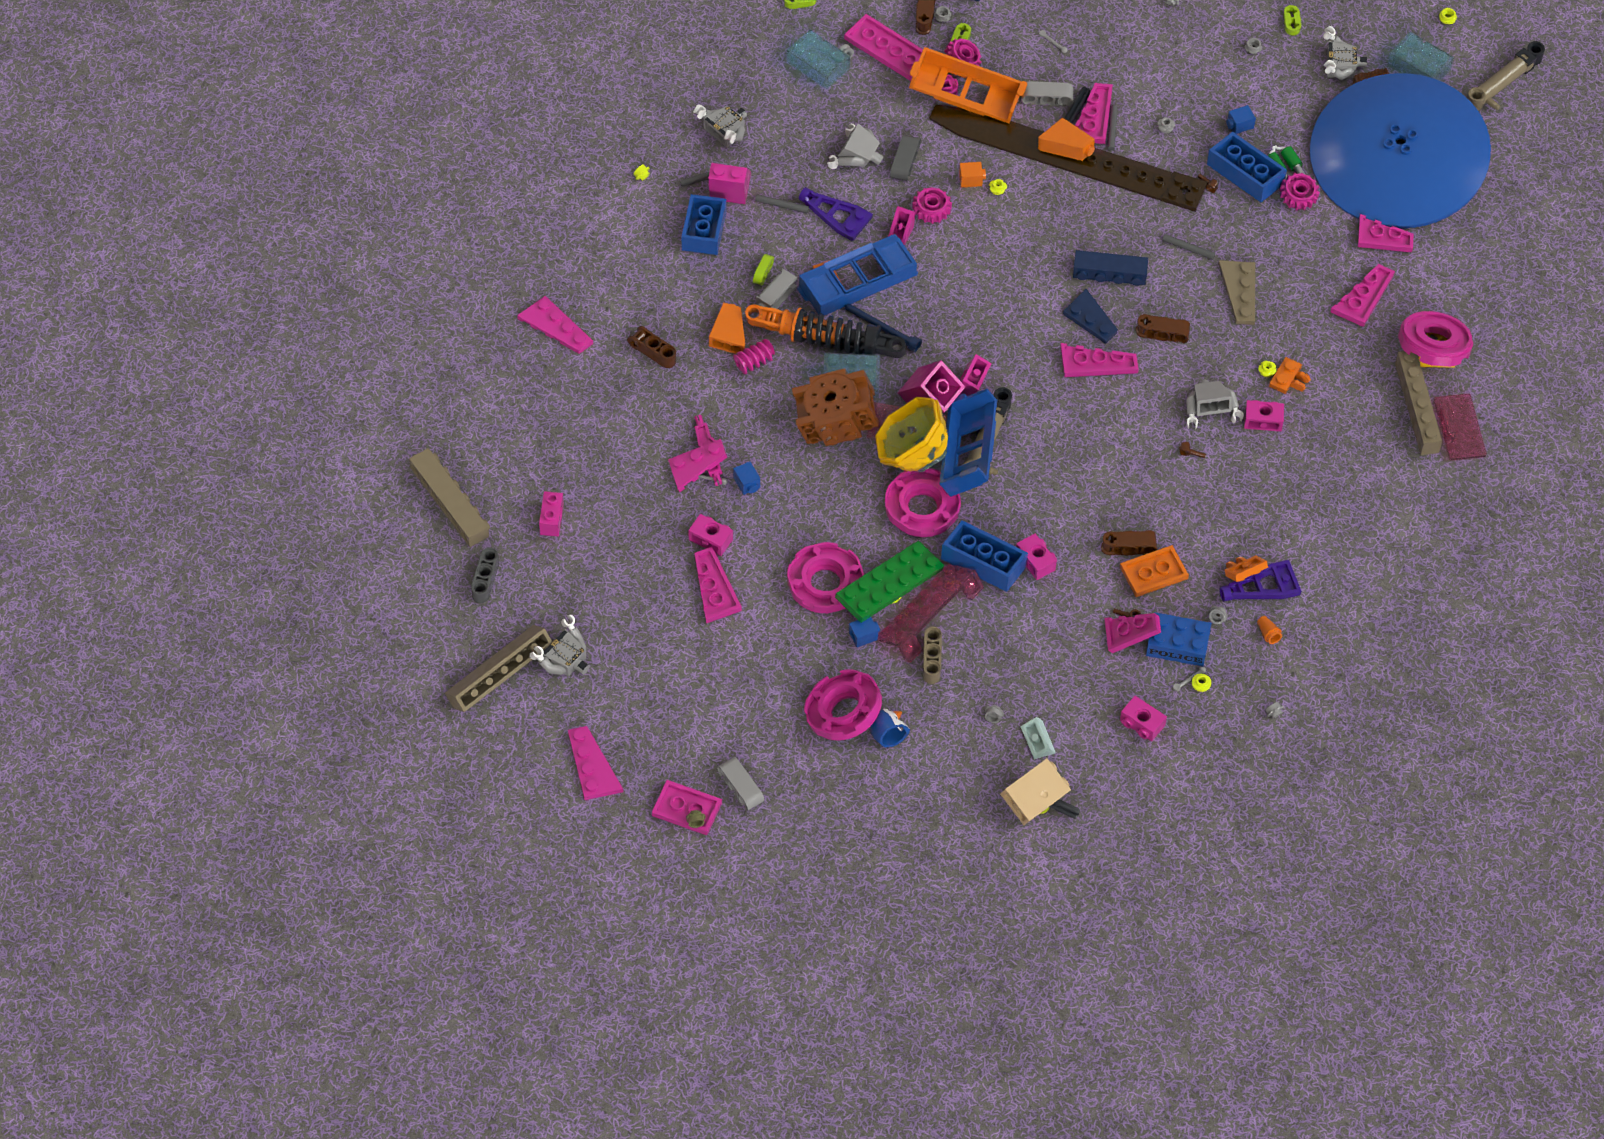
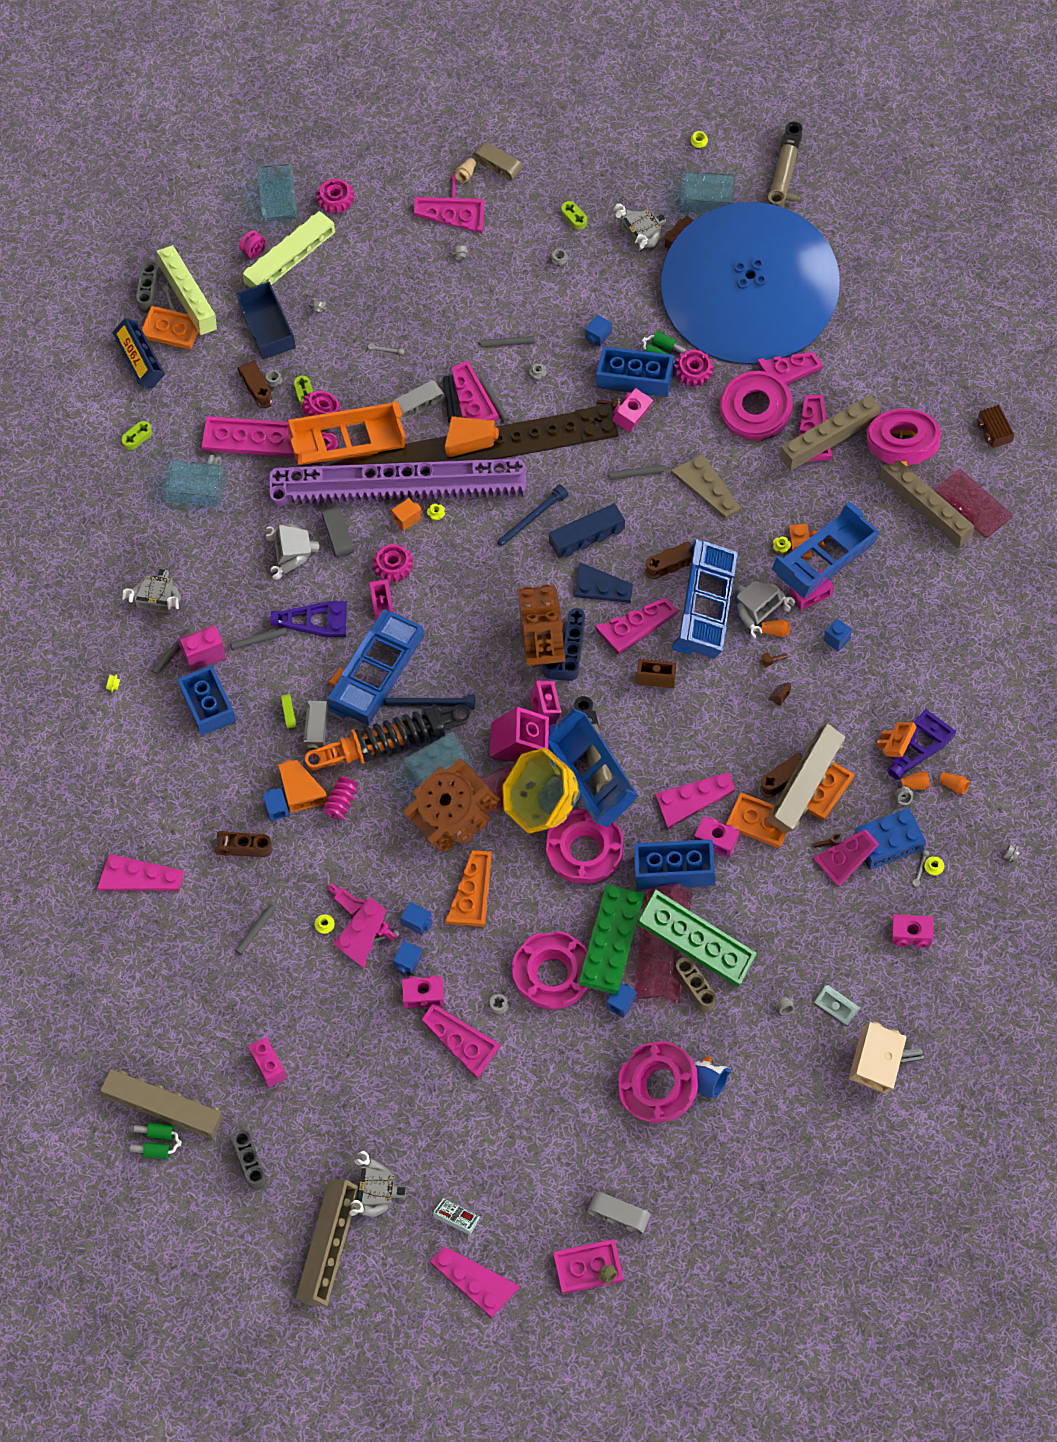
camera: 30 degrees left, 5 degrees up
(420, 527) = (156, 1150): none -> green piece
(612, 711) = (456, 1216): none -> slope
(616, 415) = (255, 929): none -> dark grey bar
(672, 445) = (327, 928): none -> neon yellow plate
(700, 332) = (275, 804): none -> blue brick
(717, 503) = (407, 958): none -> blue brick
(764, 584) = (500, 997): none -> light grey bush
(807, 485) = (471, 899): none -> orange wing
(957, 618) = (696, 938): none -> plate
(1010, 312) = (541, 625): none -> dark orange piece
(1016, 360) = (571, 645): none -> dark blue beam
(1021, 164) = (444, 479): none -> medium lavender gear
(1029, 515) = (688, 799): none -> dark pink wing
(1081, 405) = (656, 673): none -> reddish brown brick
(1083, 565) = (750, 819): none -> orange plate
(1109, 227) = (559, 493): none -> dark blue piece
(1142, 394) = (697, 631): none -> blue piece
(1142, 551) = (806, 778): none -> brick
(1158, 88) = (507, 341): none -> dark grey bar
(1176, 481) = (781, 693): none -> reddish brown slope
(1213, 201) = (629, 418): none -> dark pink brick
(1213, 429) = (776, 627): none -> orange cone
(1238, 610) = (916, 781): none -> orange cone
(1258, 461) = (837, 634): none -> blue brick
(1331, 390) = (847, 531): none -> blue piece
(1334, 267) = (761, 425): none -> dark pink piece
(1373, 301) = (829, 433): none -> dark tan brick
(1527, 377) = (995, 426): none -> reddish brown brick

